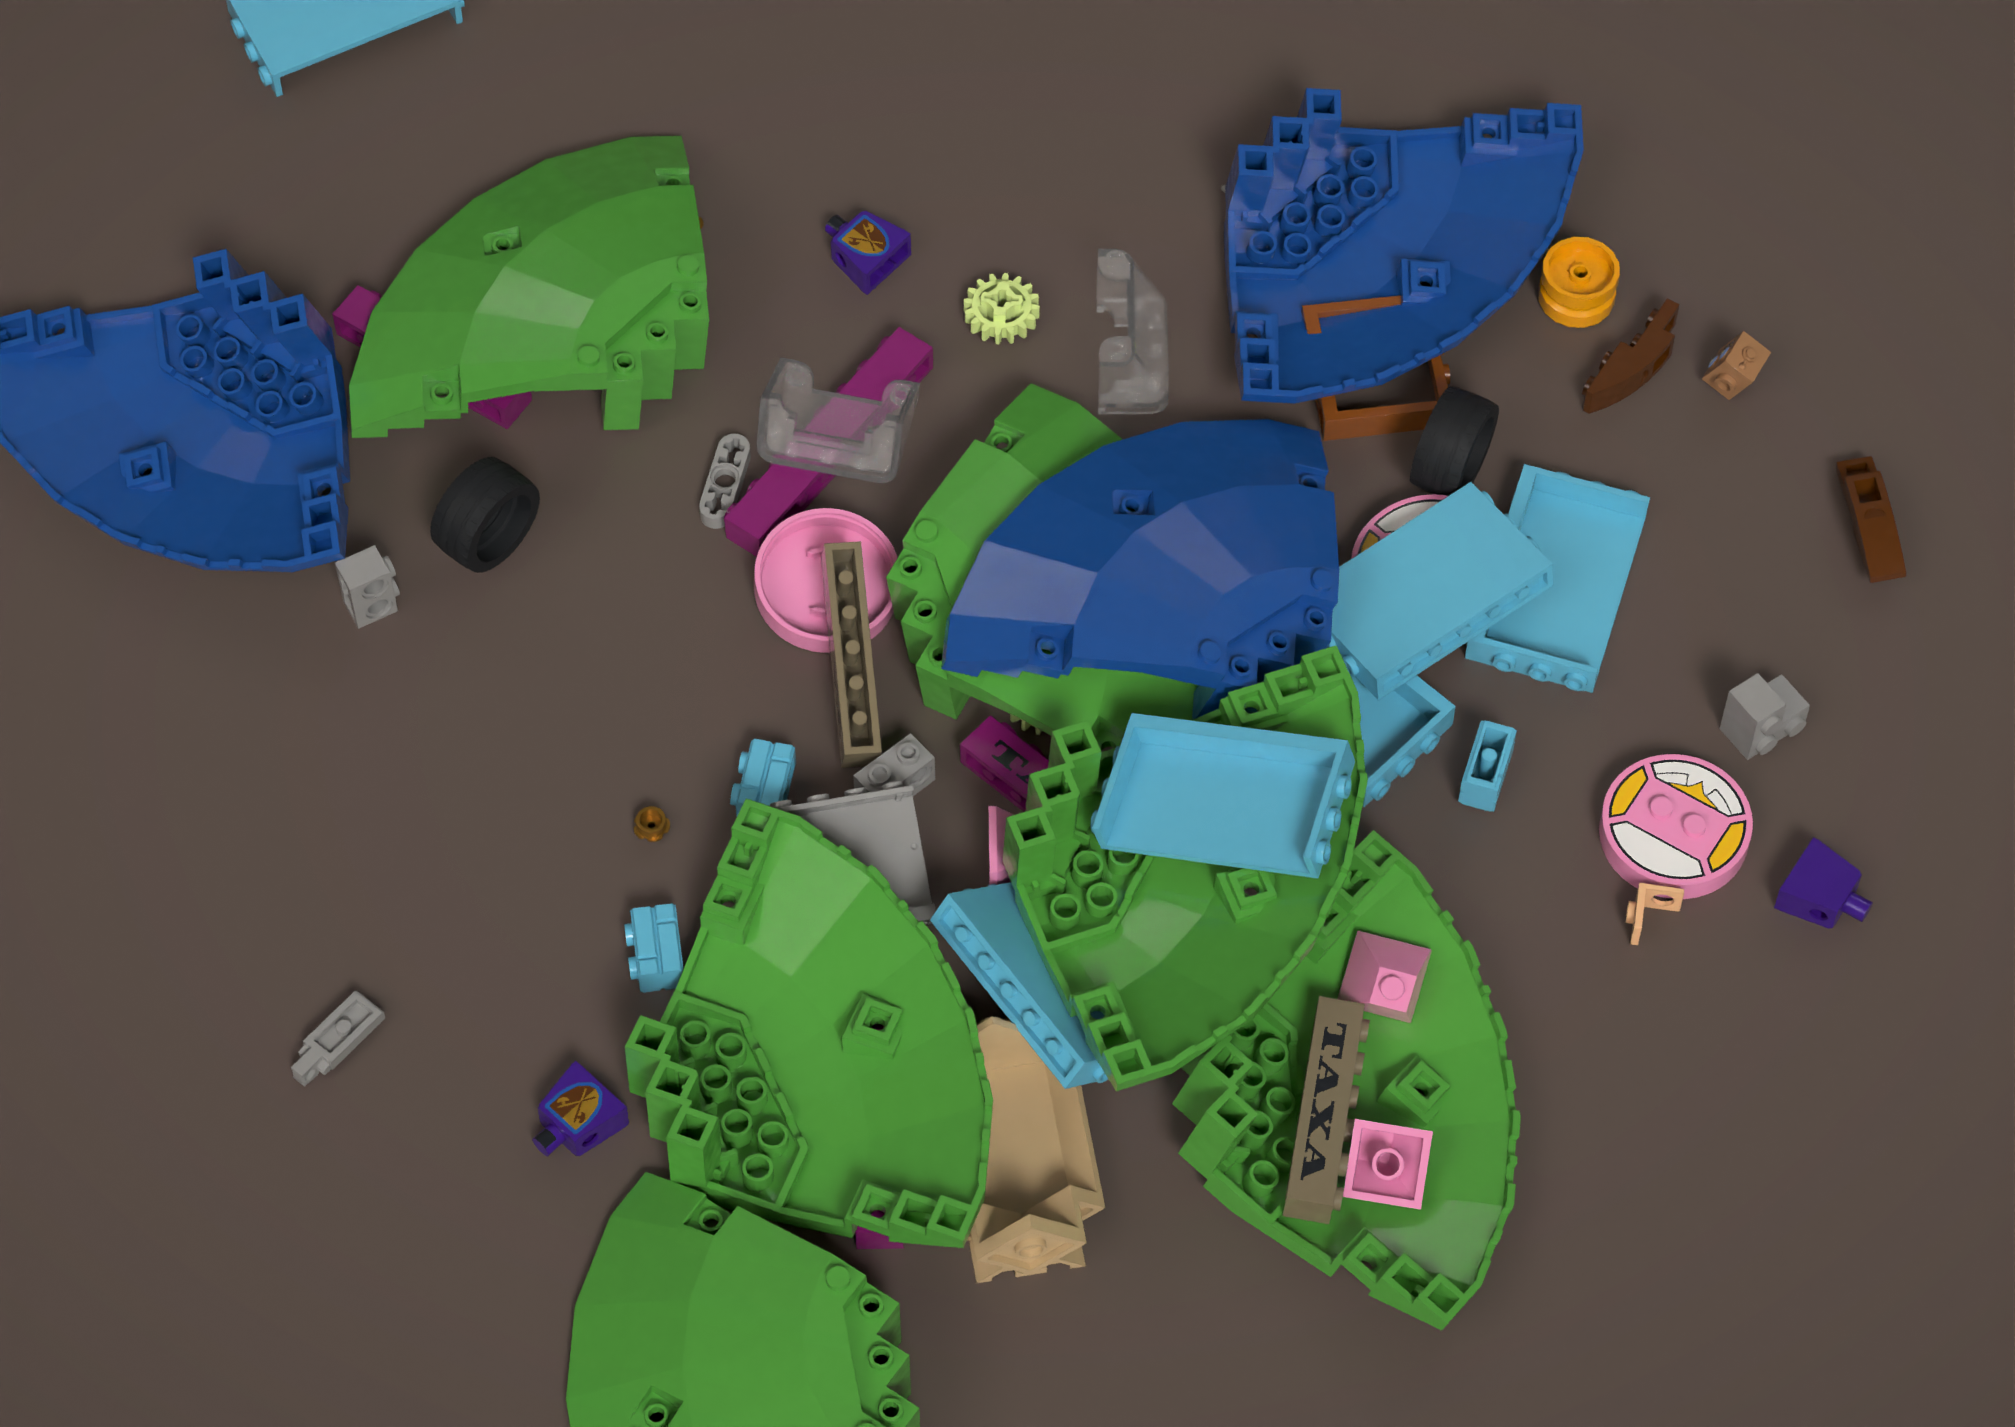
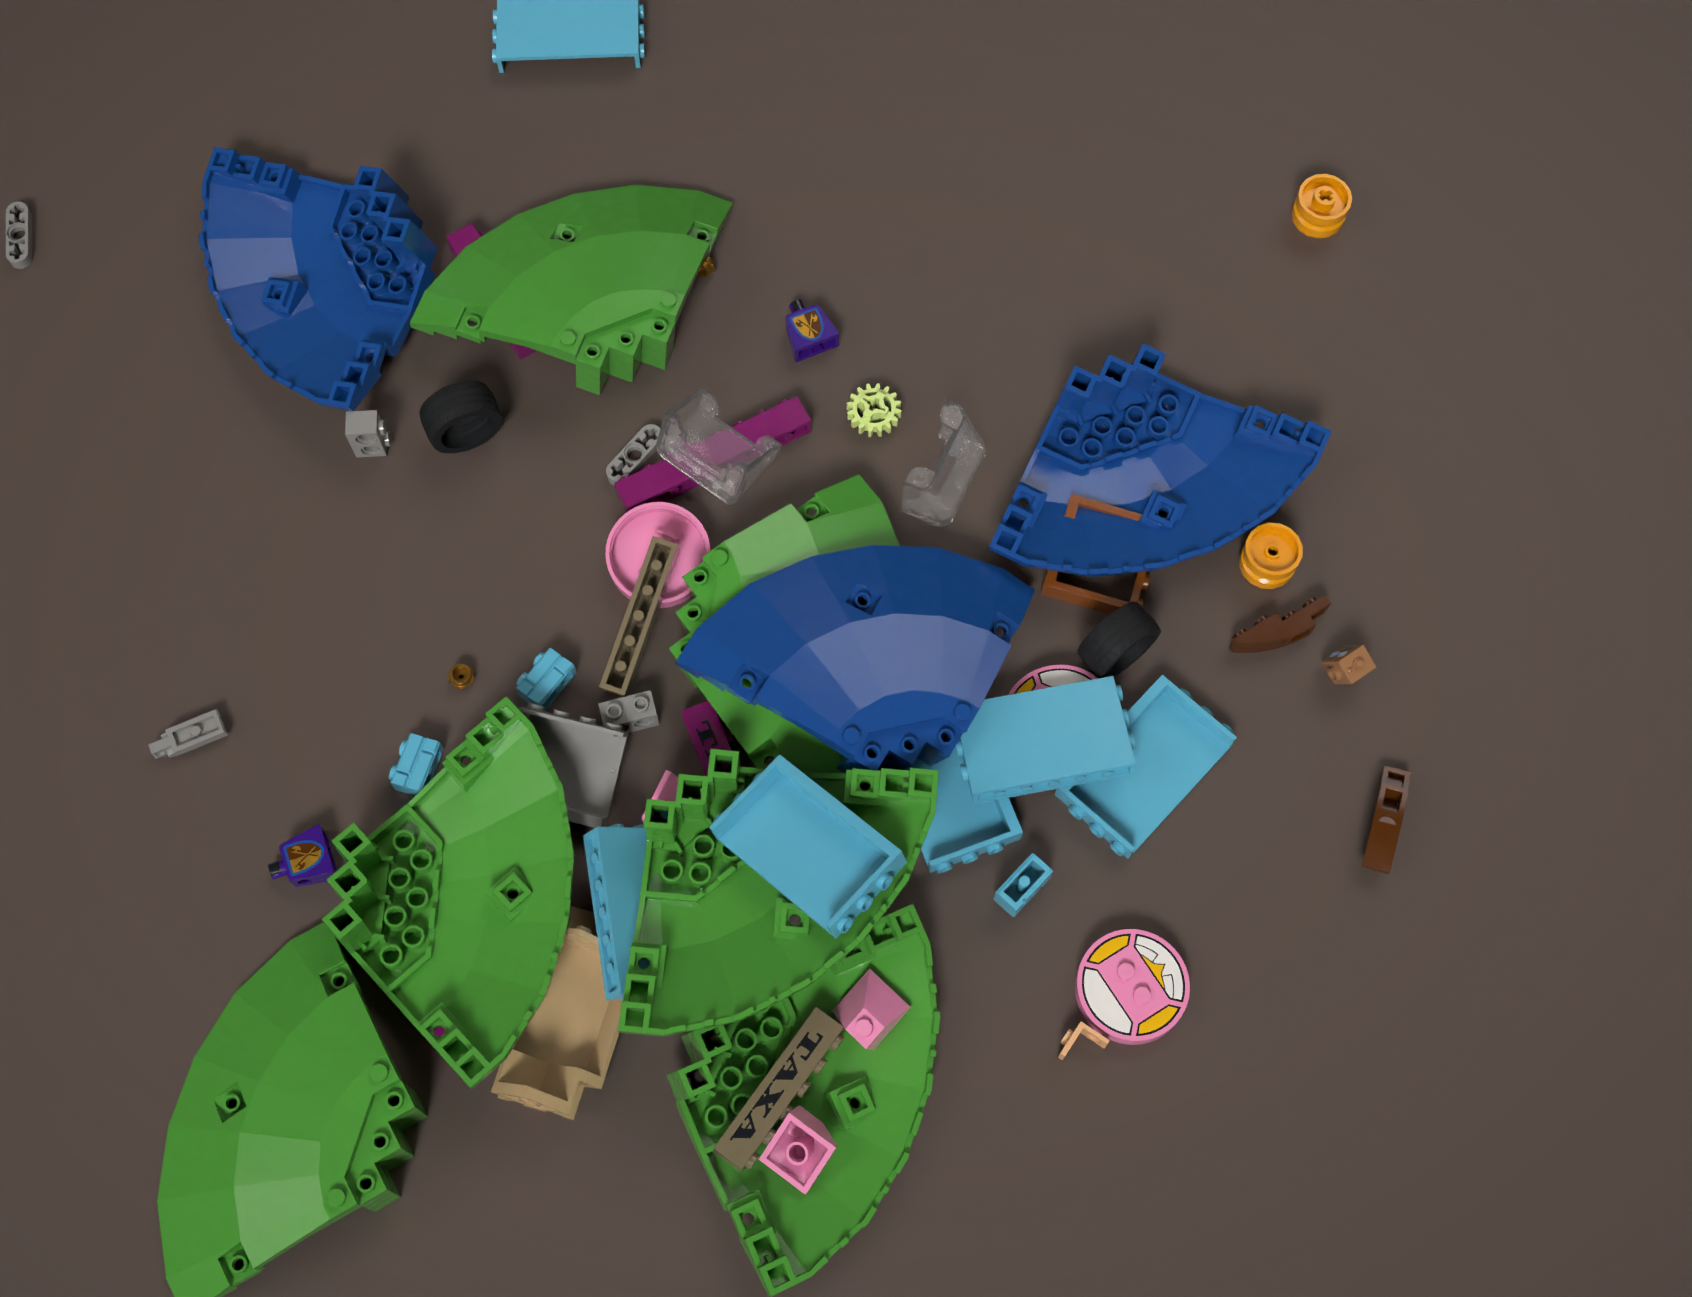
camera: 25 degrees right, 10 degrees up
(1762, 714) = (1235, 932): light grey brick -> none
(1822, 888) = (1210, 1081): dark purple torso -> none

